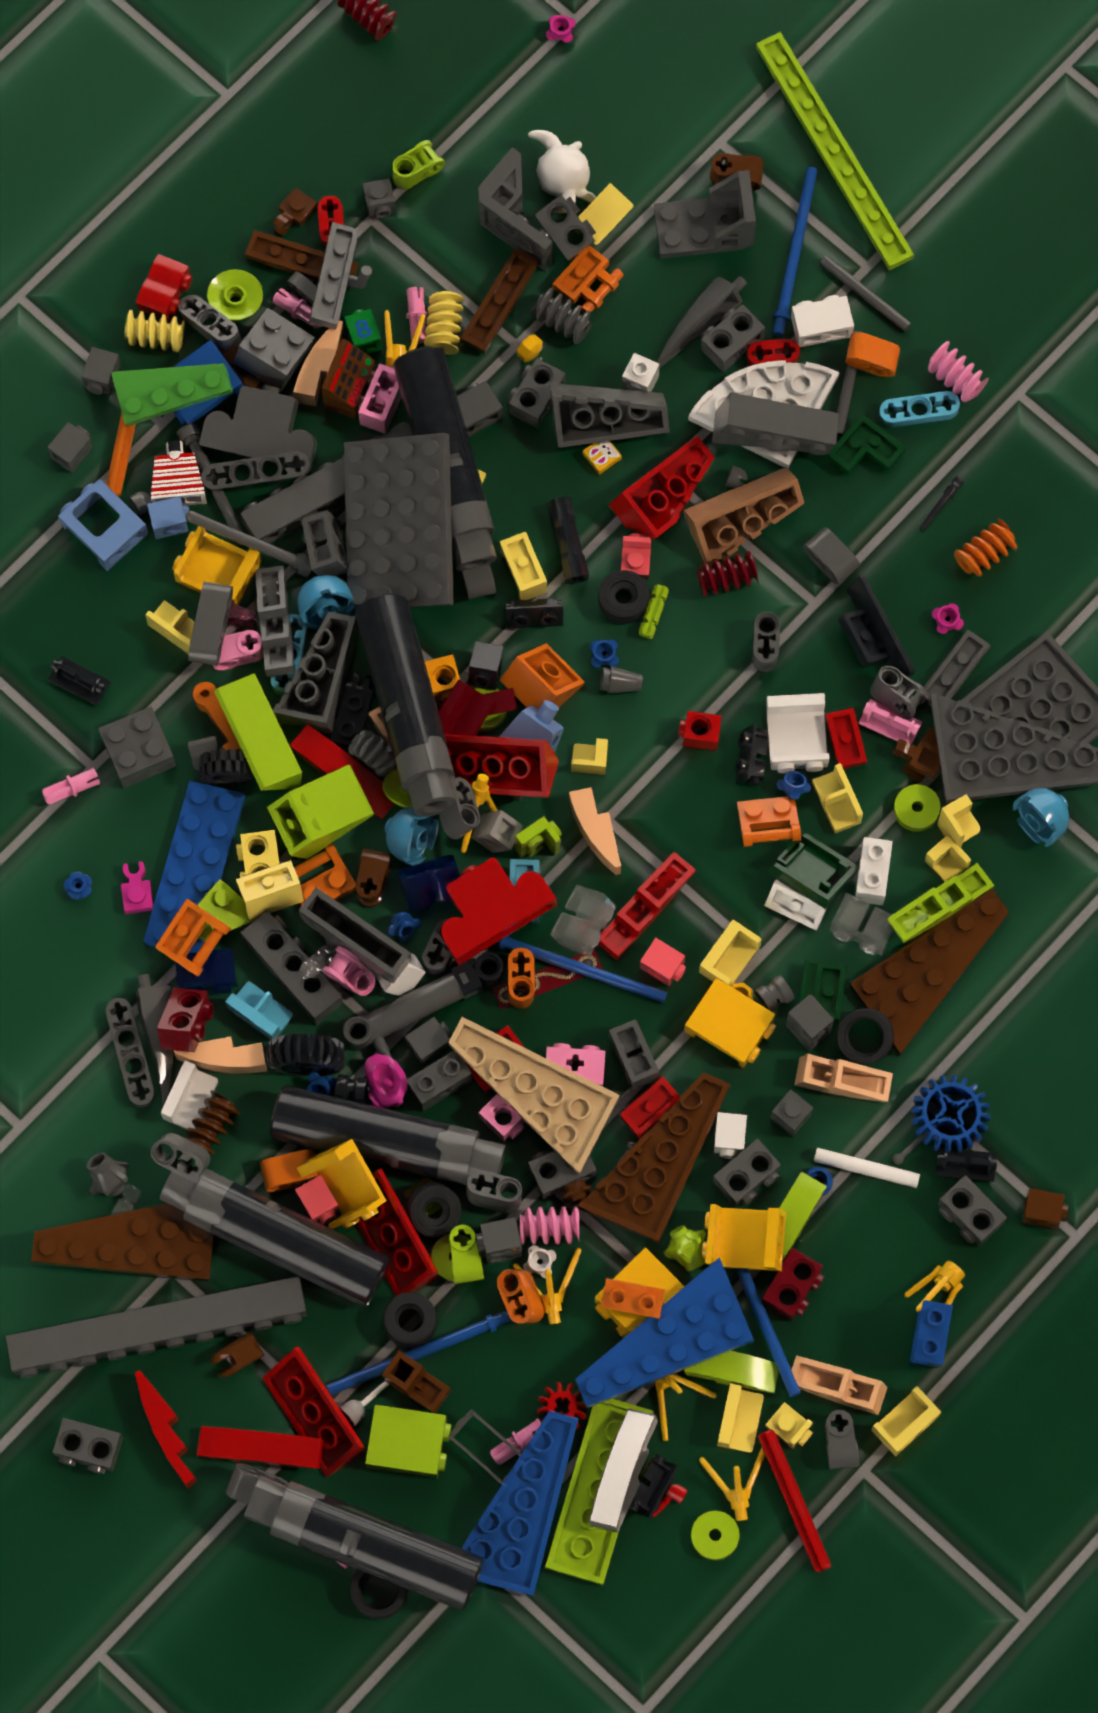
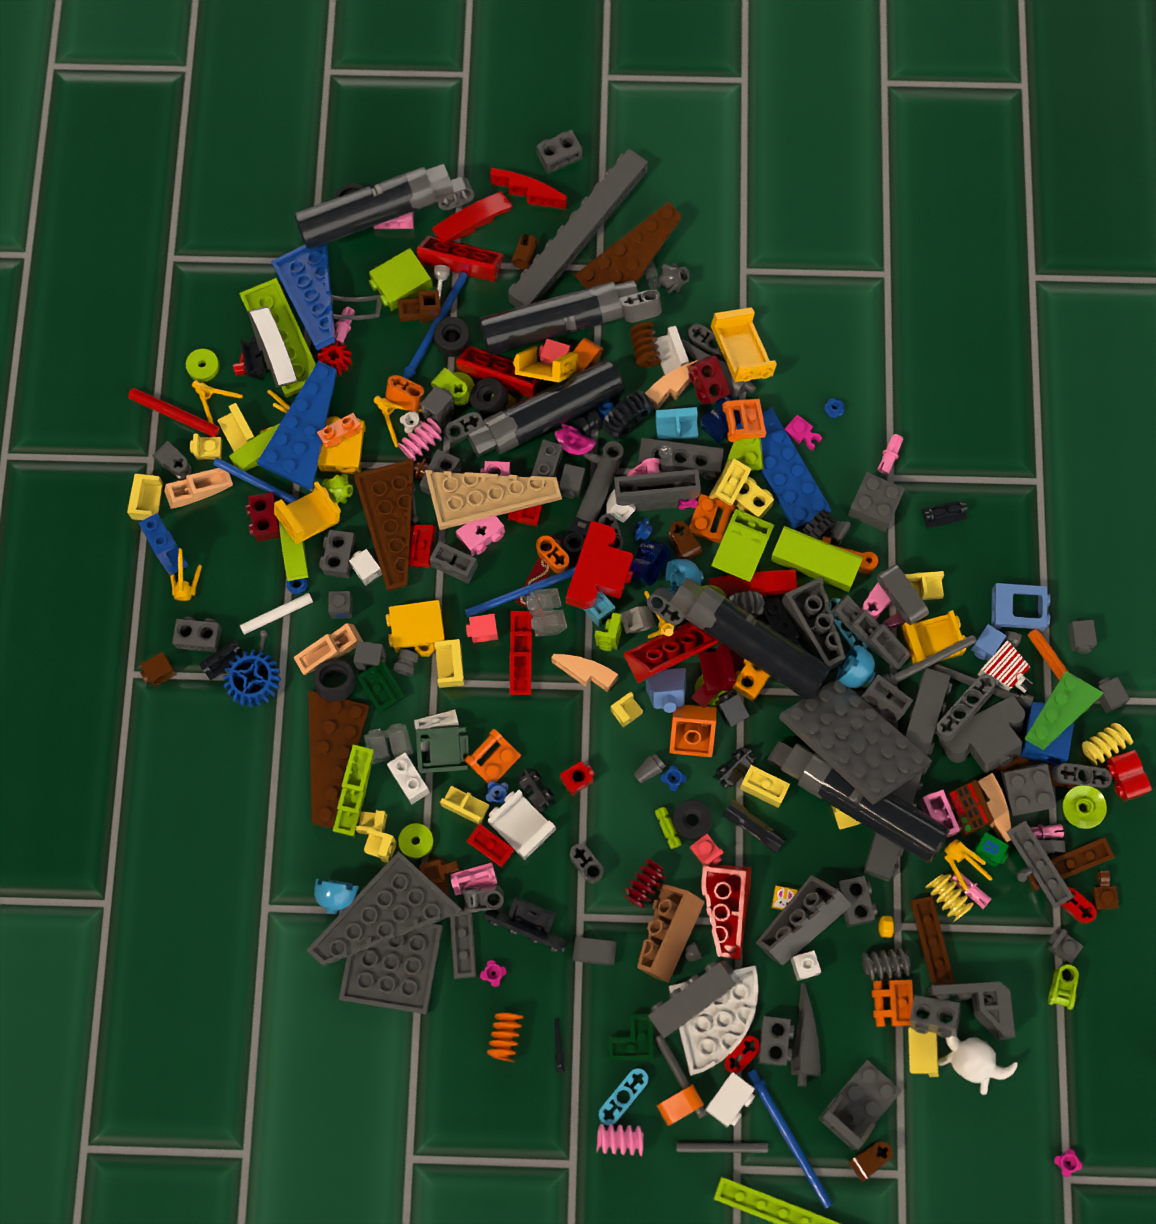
camera: 140 degrees right, 0 degrees up
(113, 1026) = (741, 345): none -> yellow panel

